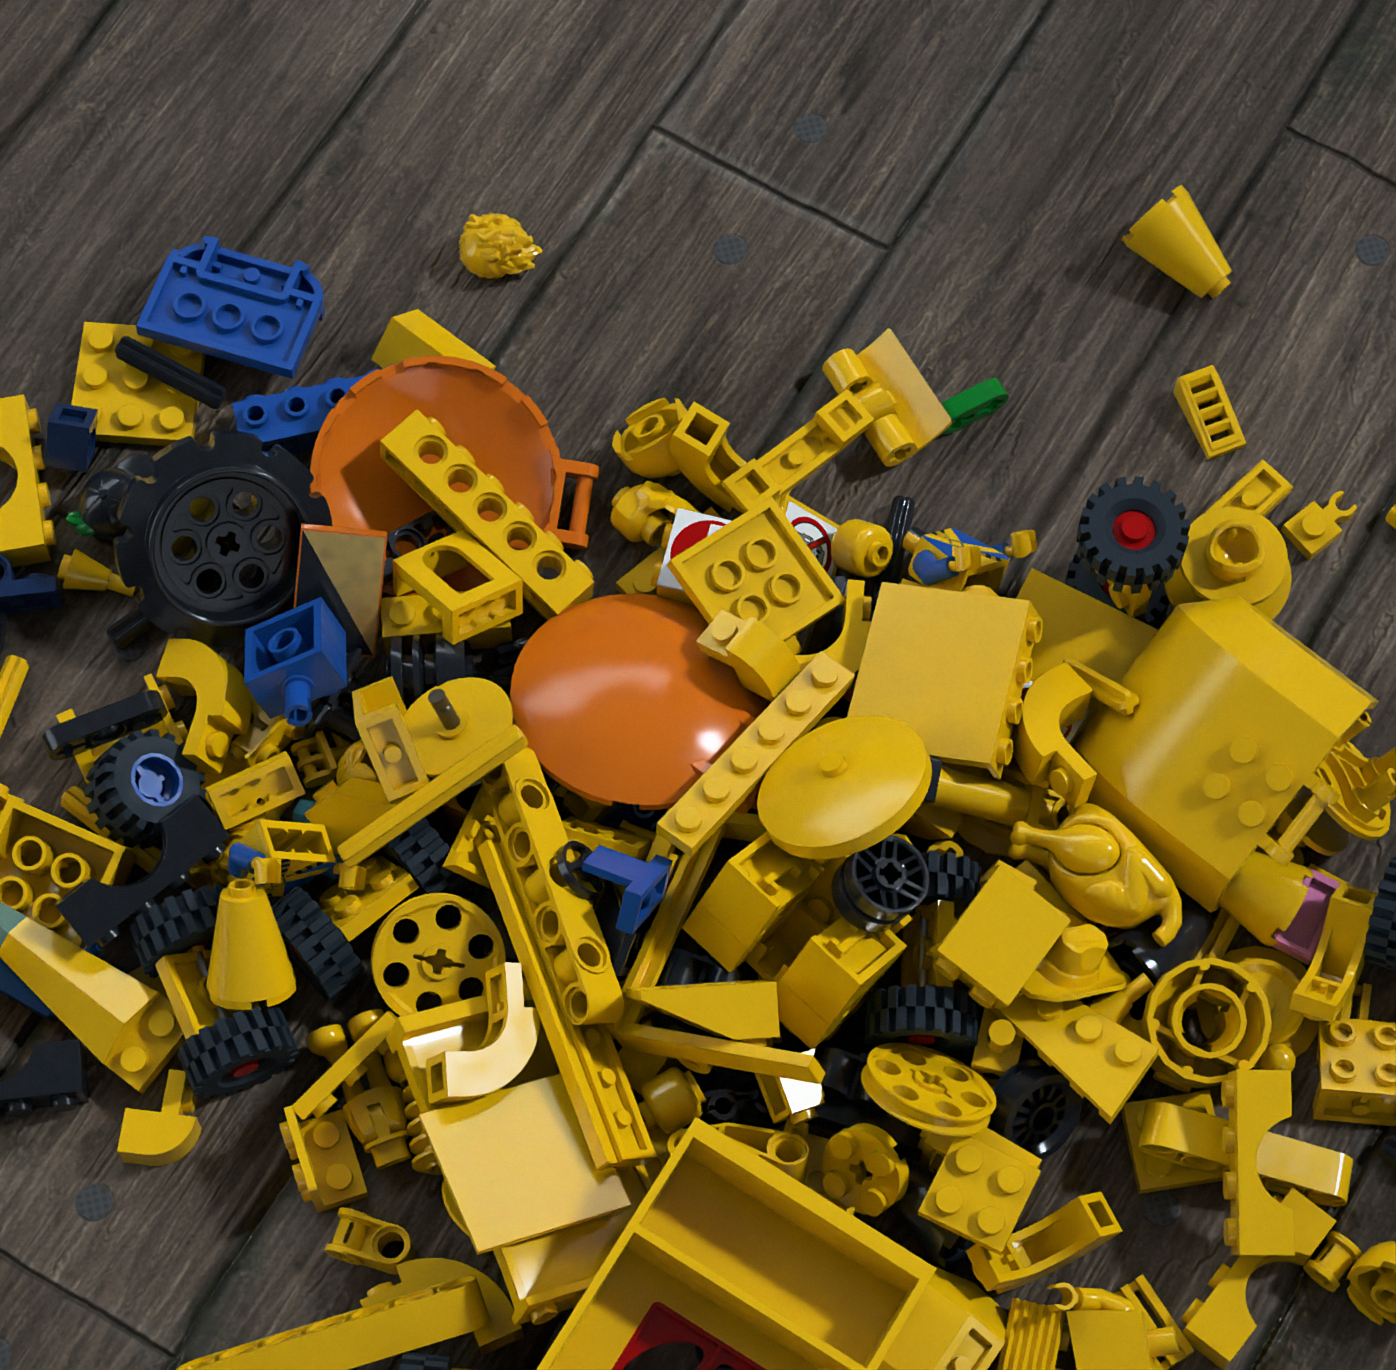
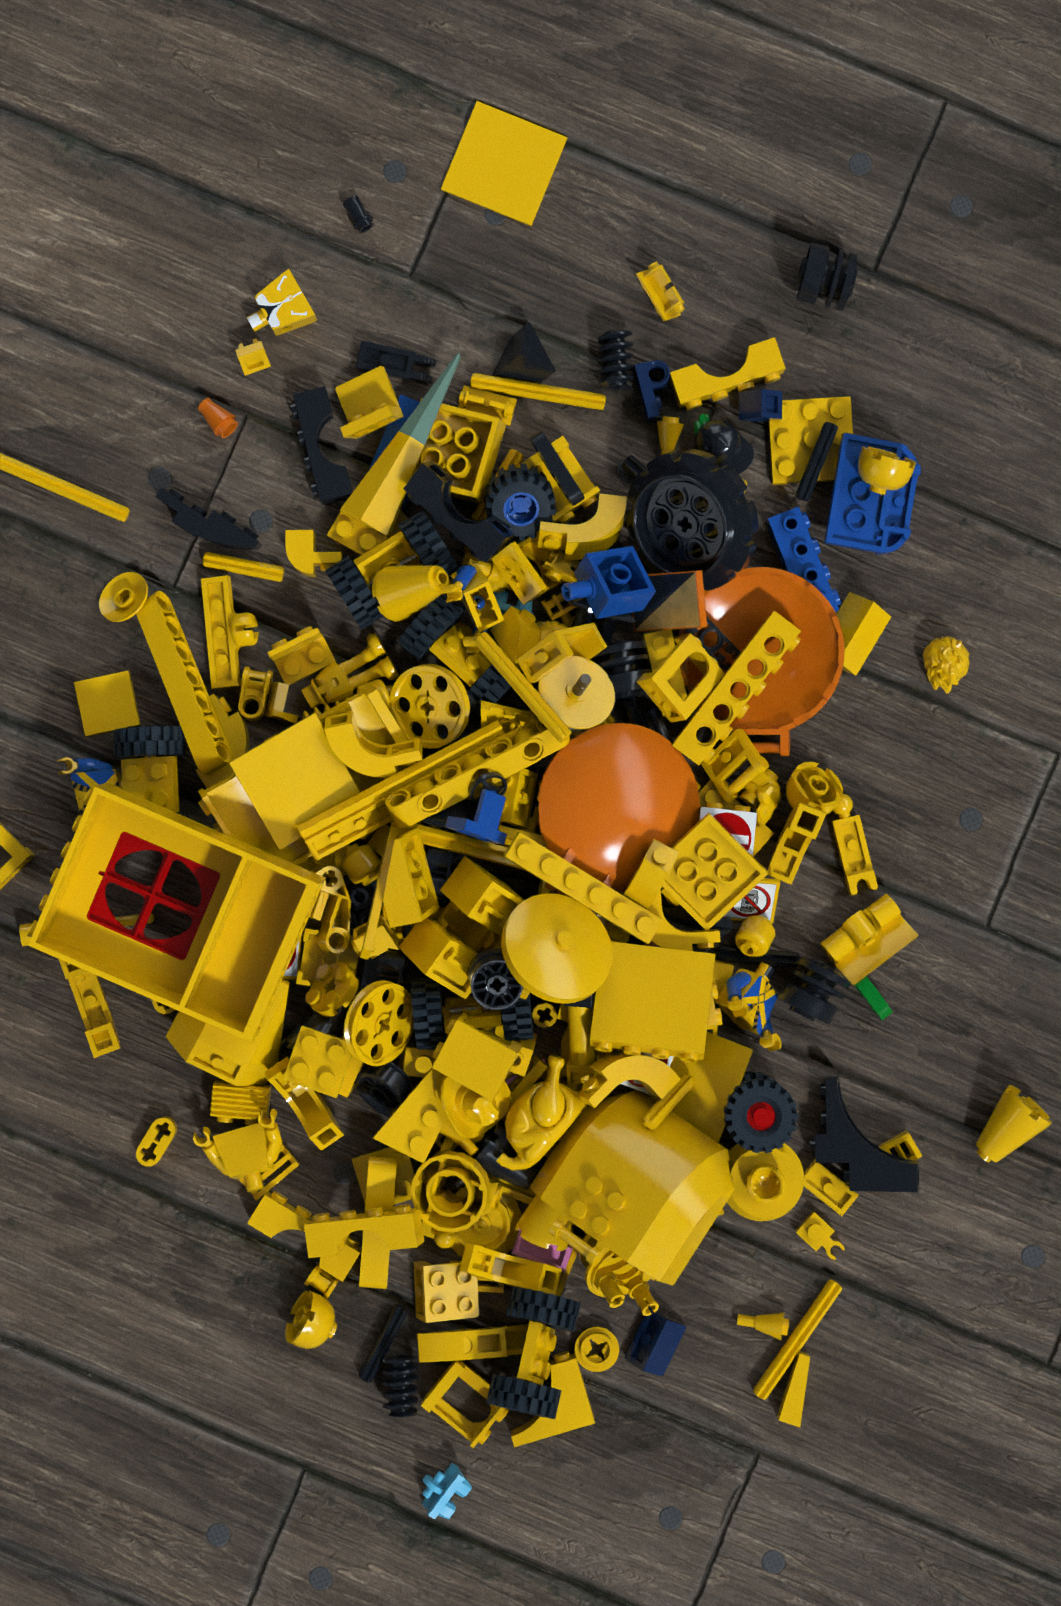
camera: 80 degrees right, 20 degrees up
(95, 1268) = (216, 529): none -> black slope
(162, 1236) = (243, 566): none -> yellow axle
(202, 272) = (884, 469): none -> yellow cylinder
(262, 1276) = (225, 631): none -> yellow plate
(347, 1069) = (355, 661): yellow plate -> none
(393, 1205) = (277, 701): none -> yellow tile
(586, 540) = (728, 759): none -> yellow plate
(759, 401) = (852, 847): none -> yellow plate
(800, 454) = (813, 886): yellow slope -> none
(960, 478) = (813, 990): none -> black wheel
(1219, 437) = (843, 1142): none -> black arch

